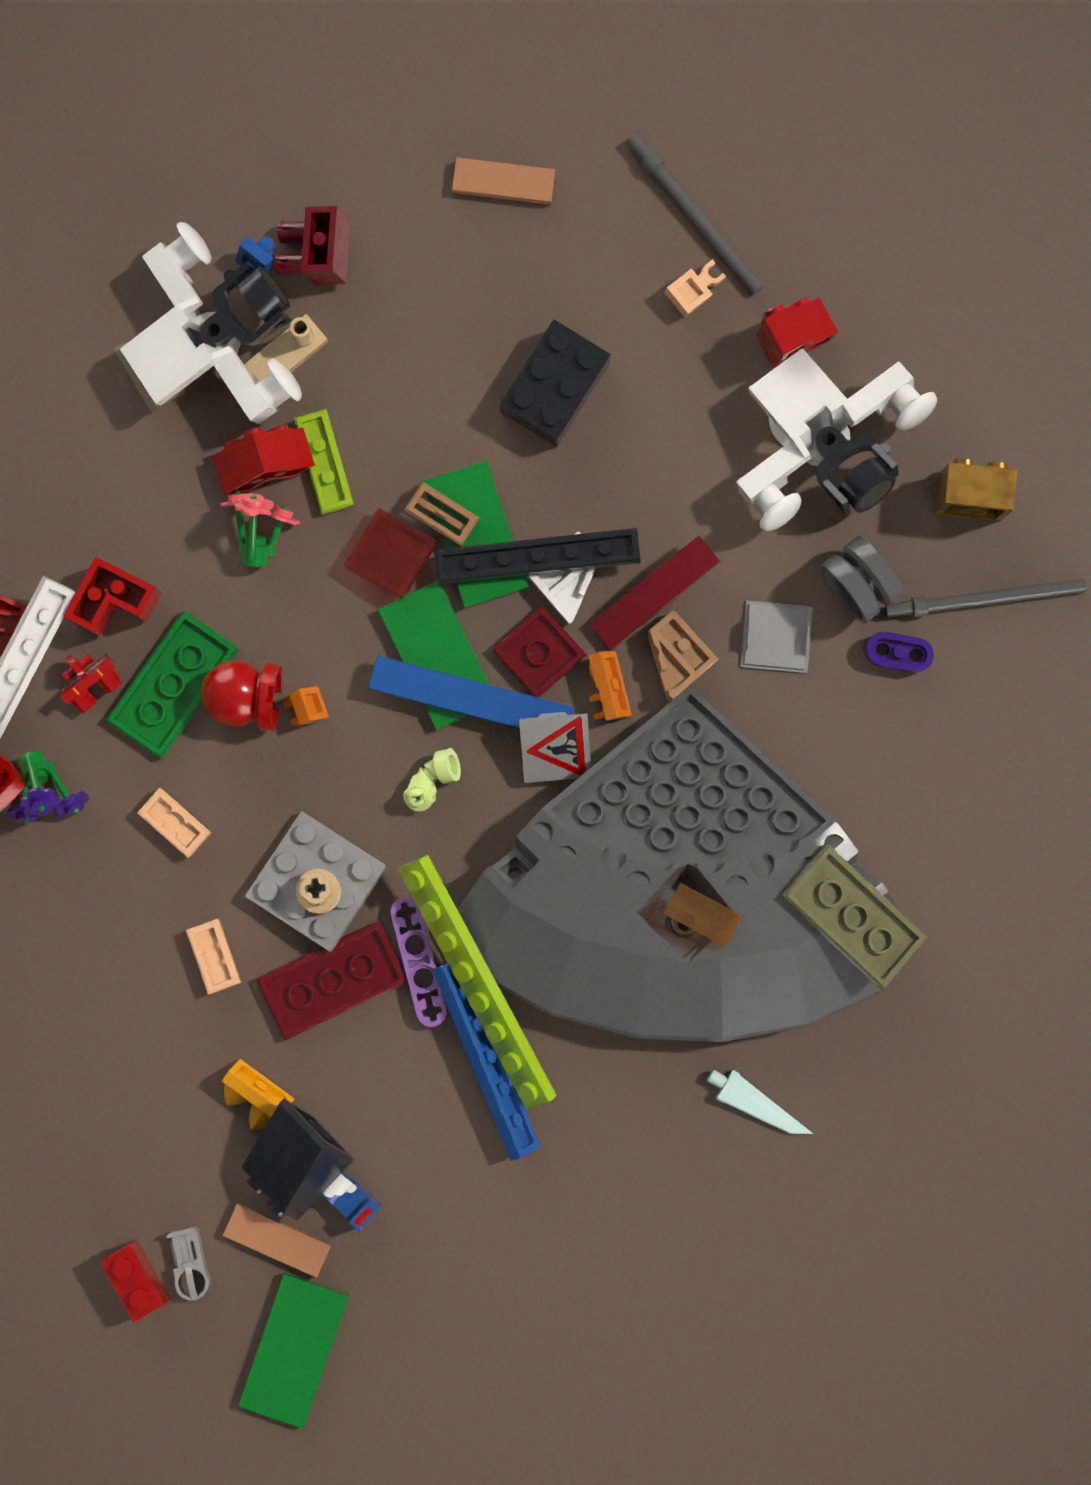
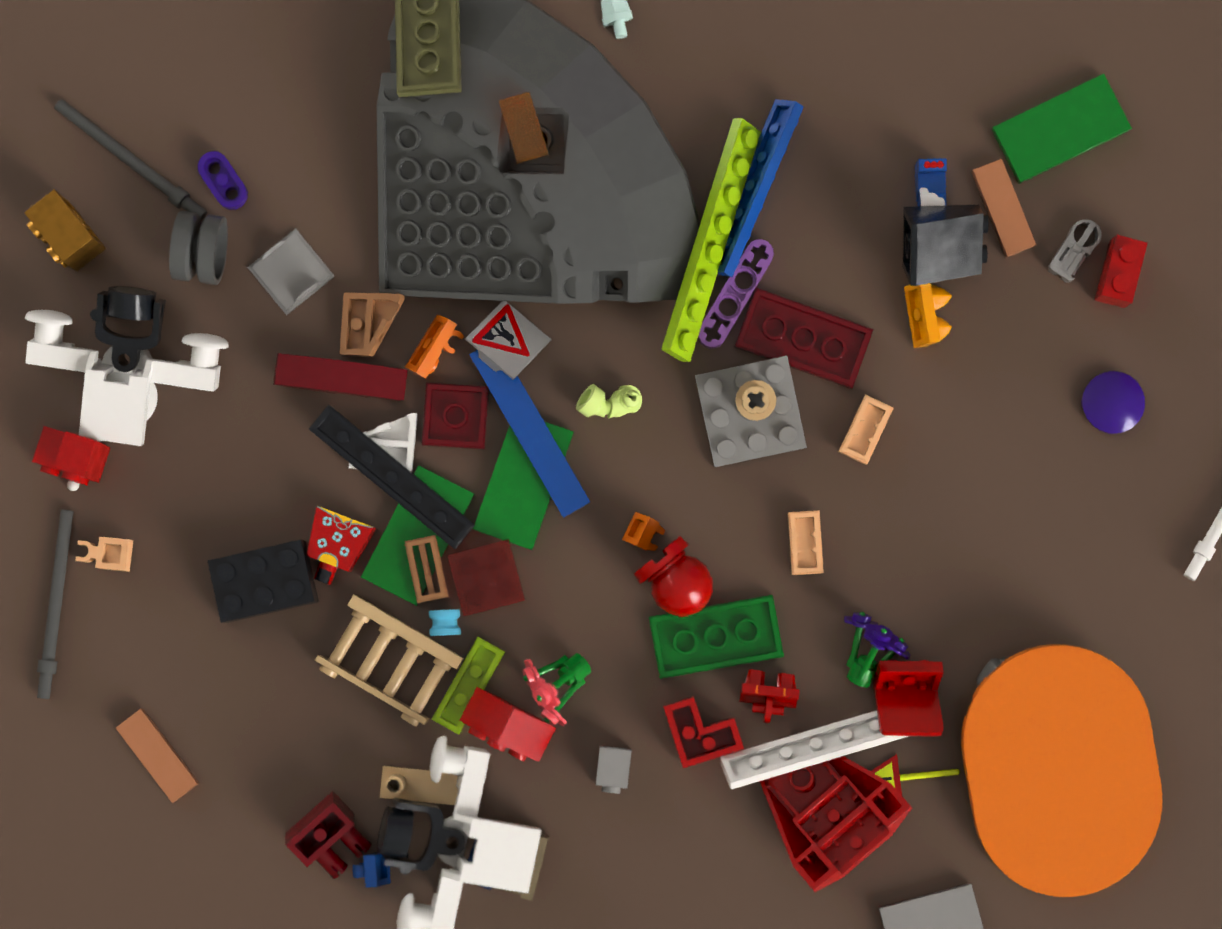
camera: 130 degrees left, 0 degrees up
(42, 1171) = (1113, 402): none -> dark purple dish
(151, 508) = (613, 768): none -> light grey brick
(388, 489) = (444, 622): none -> medium azure wheel
(424, 444) = (416, 646): none -> tan fence
(530, 467) = (336, 543): none -> red torso

